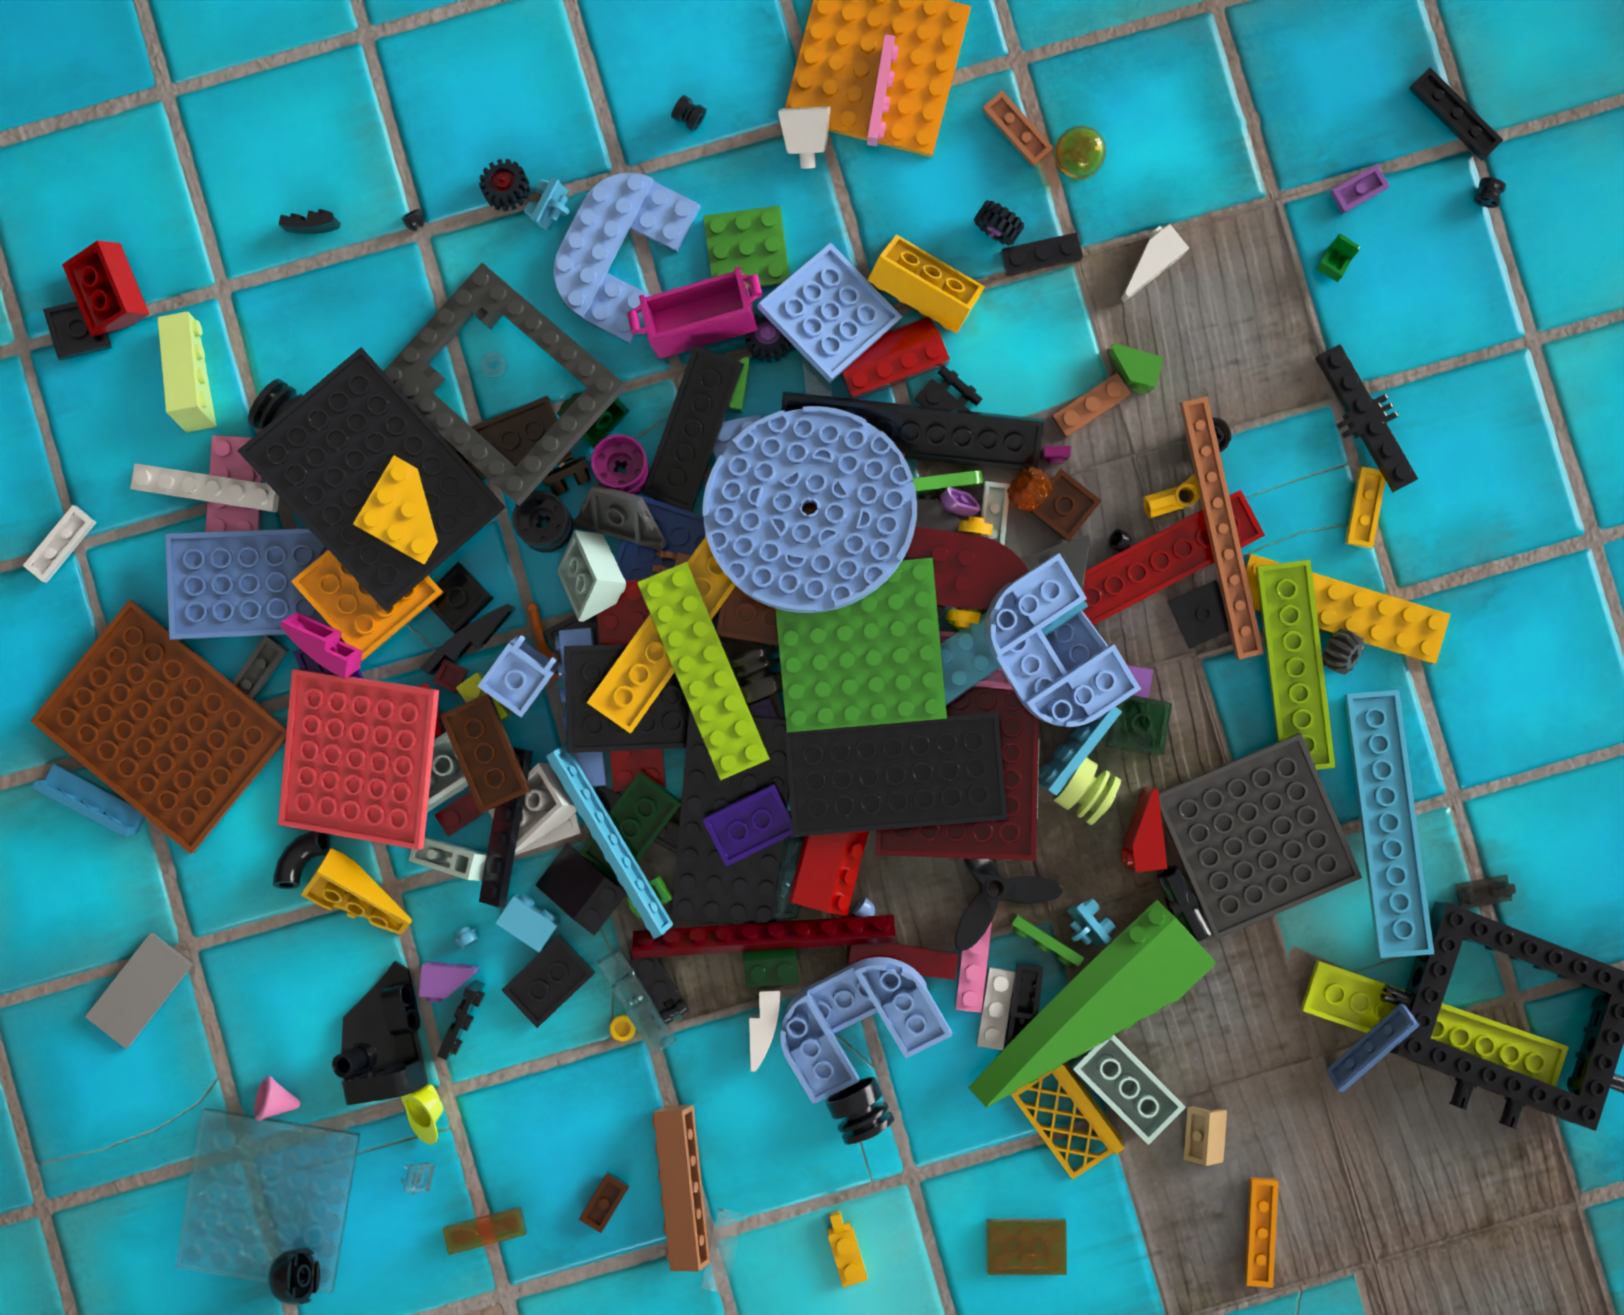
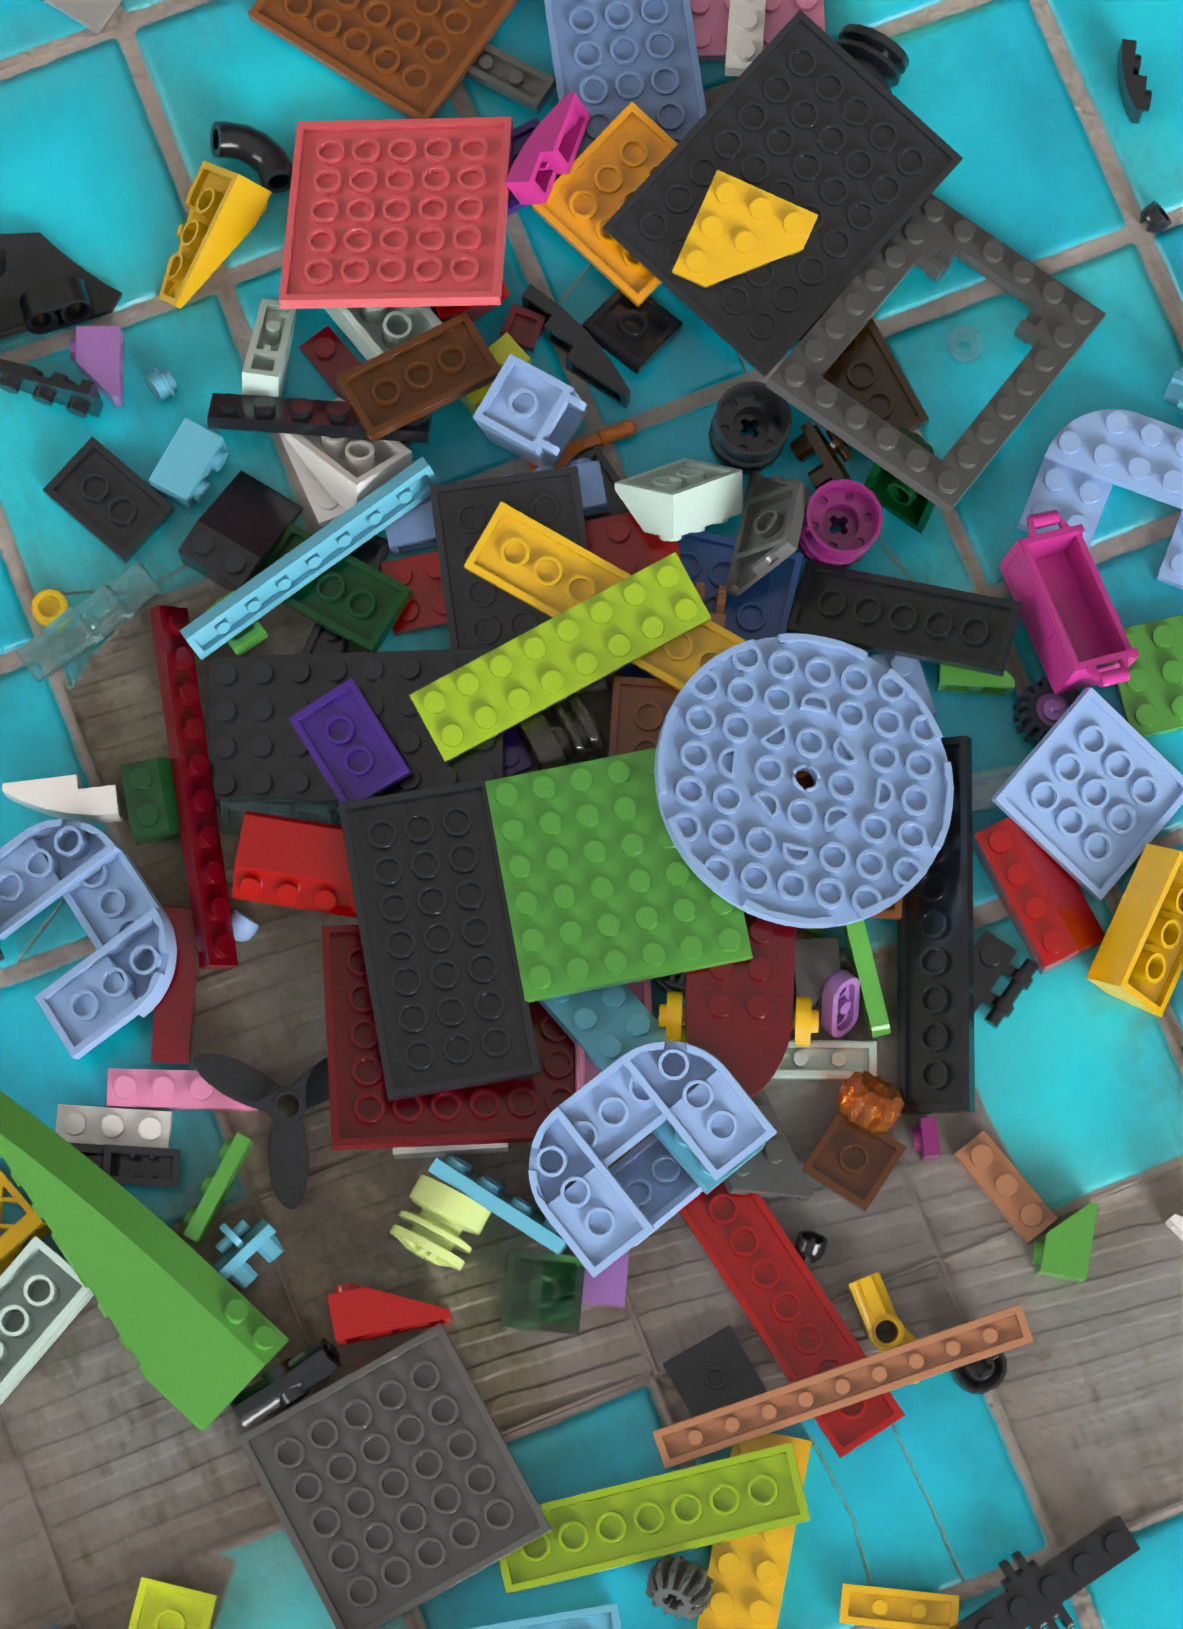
camera: 85 degrees right, 10 degrees down
(659, 987) = (110, 652): black plate -> none

